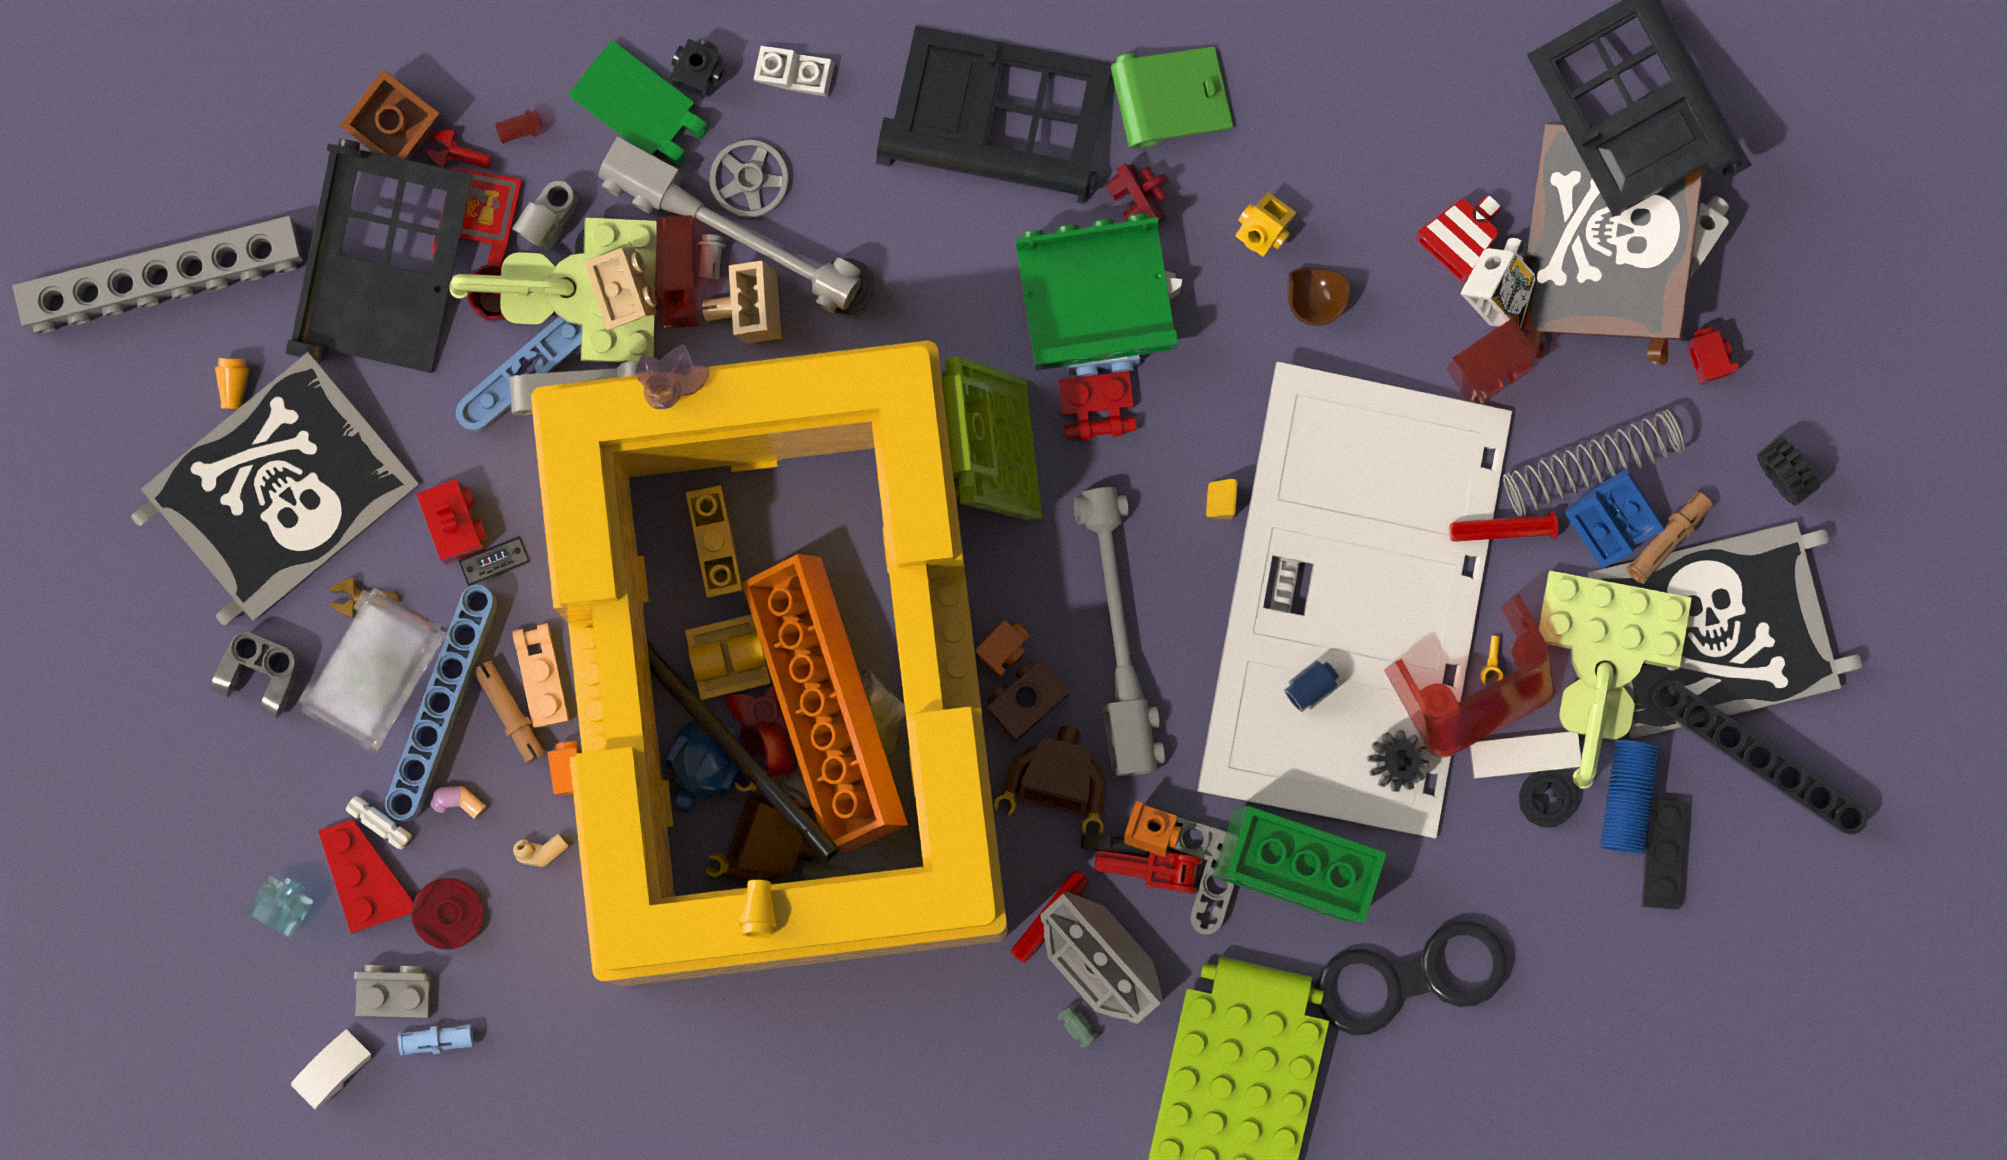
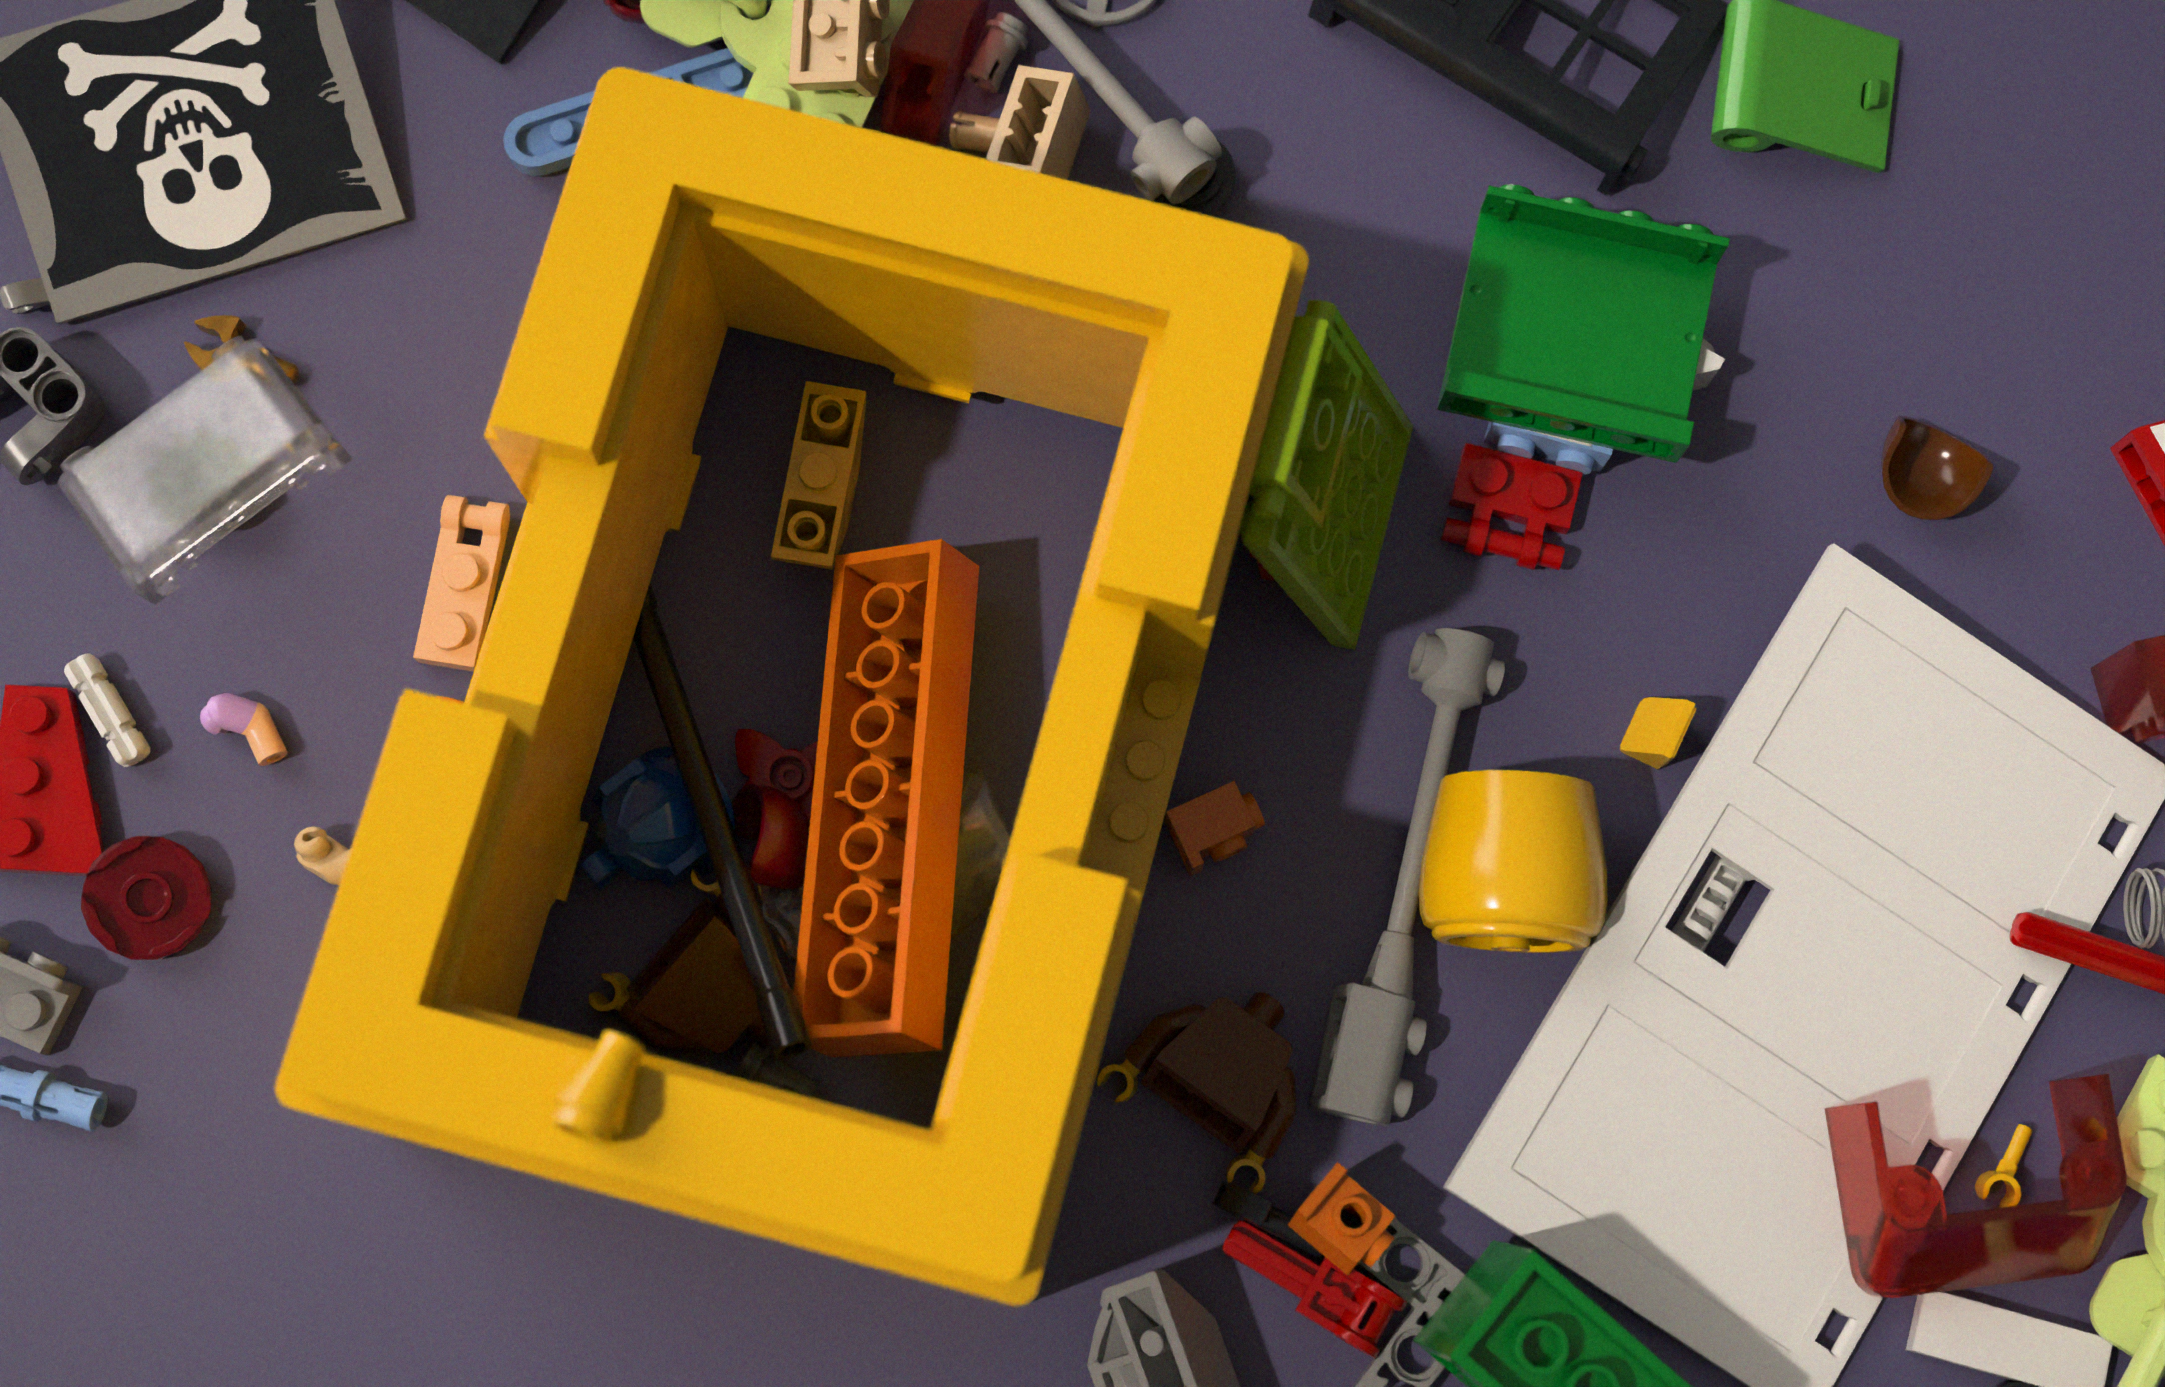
camera: 15 degrees right, 5 degrees down
(444, 721) = (255, 568): medium blue beam -> none
(451, 521) = (427, 290): red brick -> none
(494, 561) = (458, 379): sticker -> none
(509, 712) = (389, 642): medium nougat pin -> none
(670, 374) = (837, 125): plate -> none
(727, 658) = (763, 669): yellow plate -> none
(1020, 720) = (1195, 954): reddish brown brick -> none
(1035, 933) = (1081, 1316): red axle -> none
(1131, 182) = (1692, 185): dark red hips -> none
(1170, 606) = (1514, 863): none -> yellow piece
(1265, 224) = (1886, 328): yellow brick -> none
(1312, 685) = (1702, 1087): dark blue brick -> none
(1390, 770) = (1782, 1287): black gear -> none

